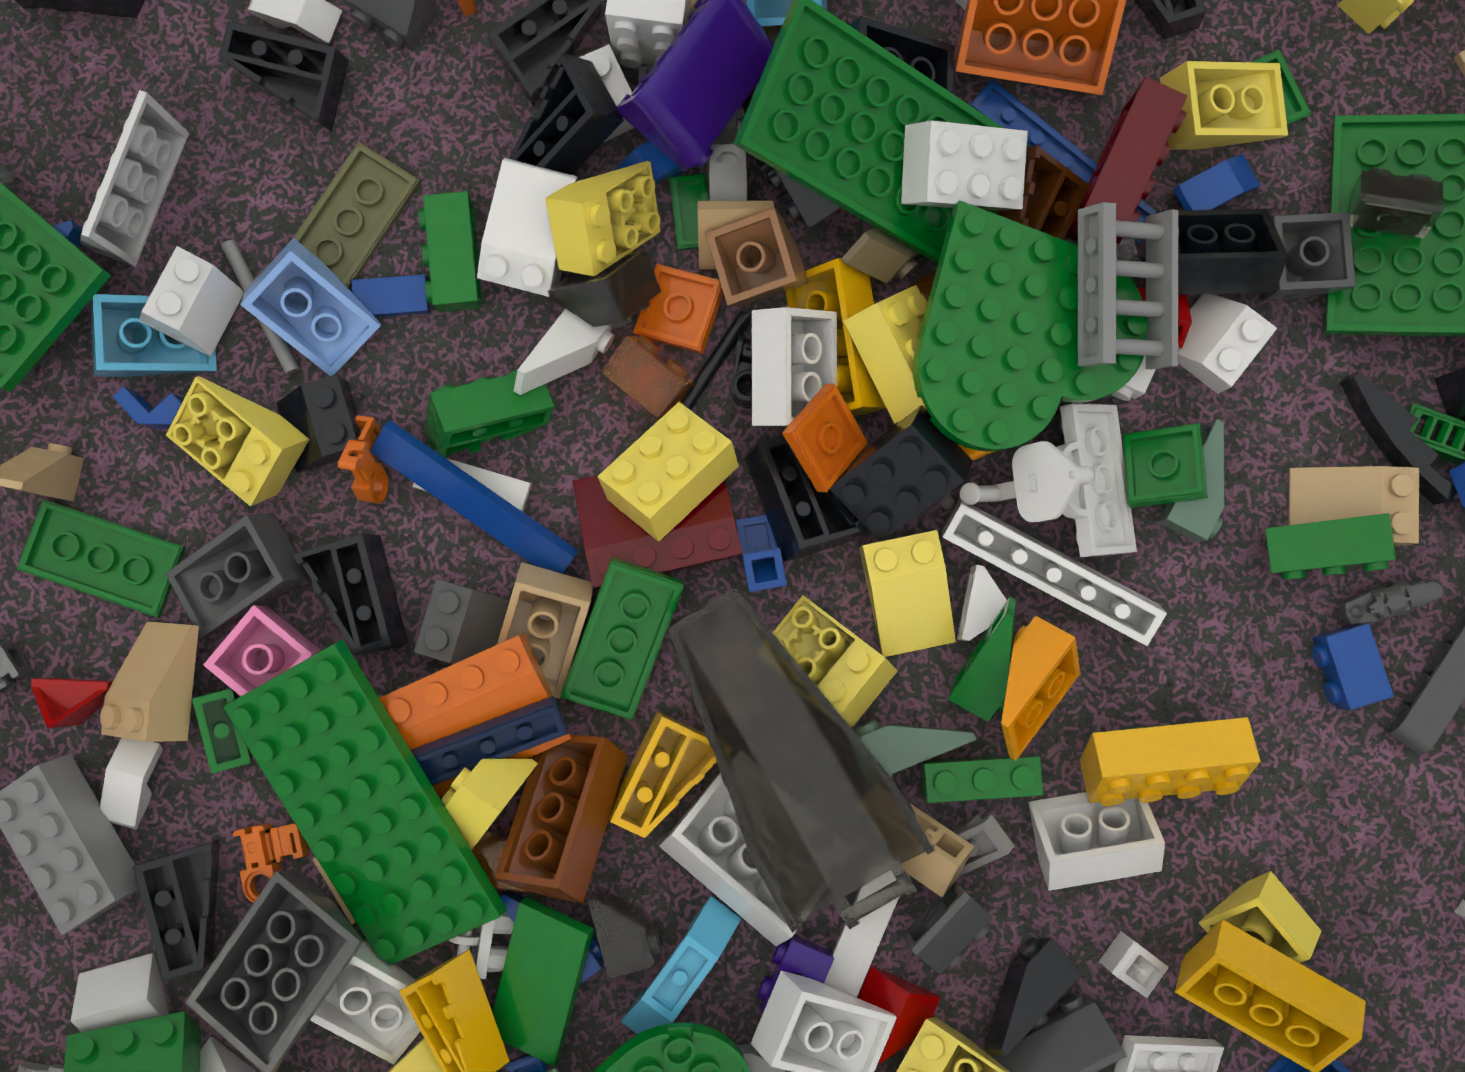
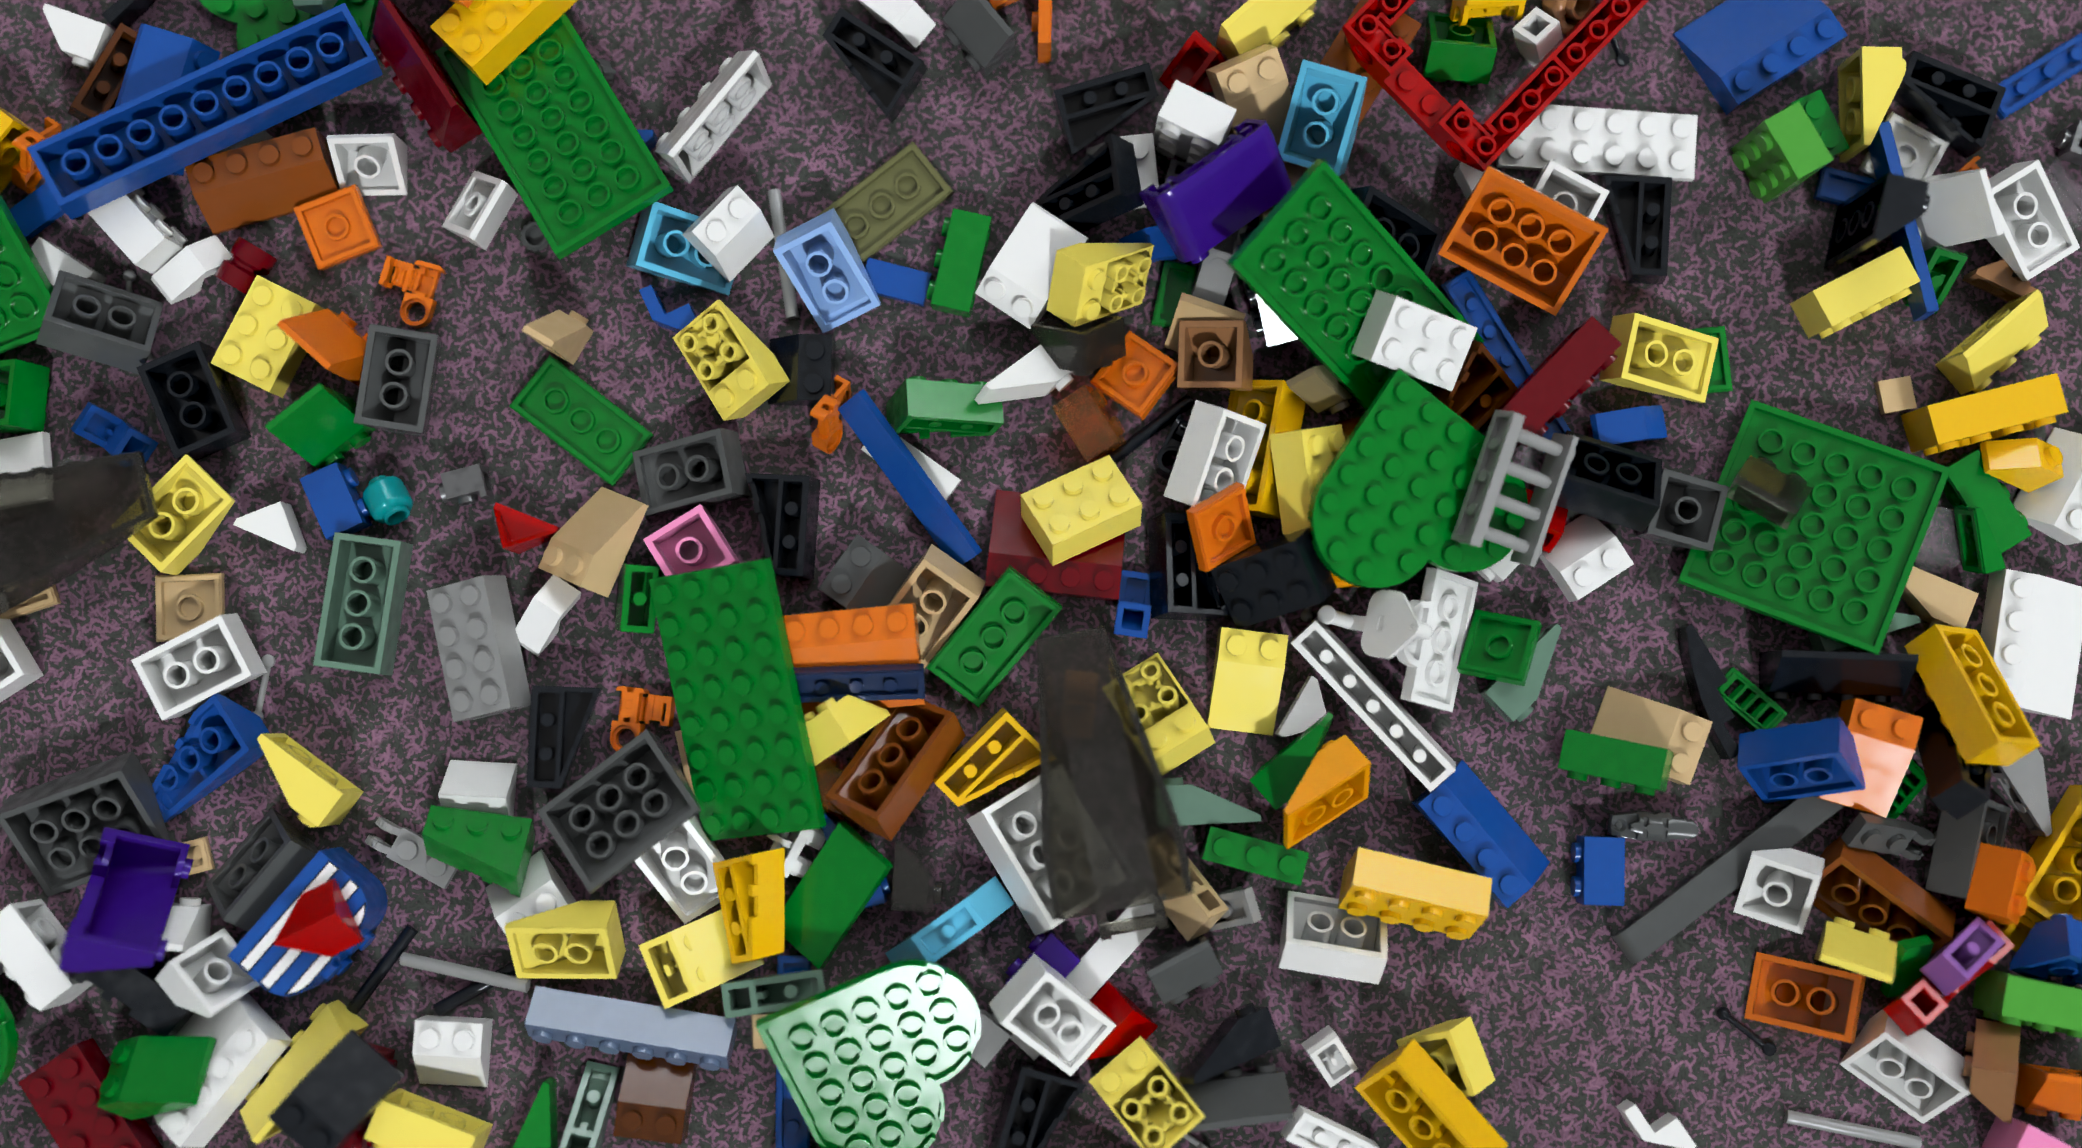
camera: 20 degrees right, 0 degrees up
(1216, 672) = (1483, 834): none -> blue slope

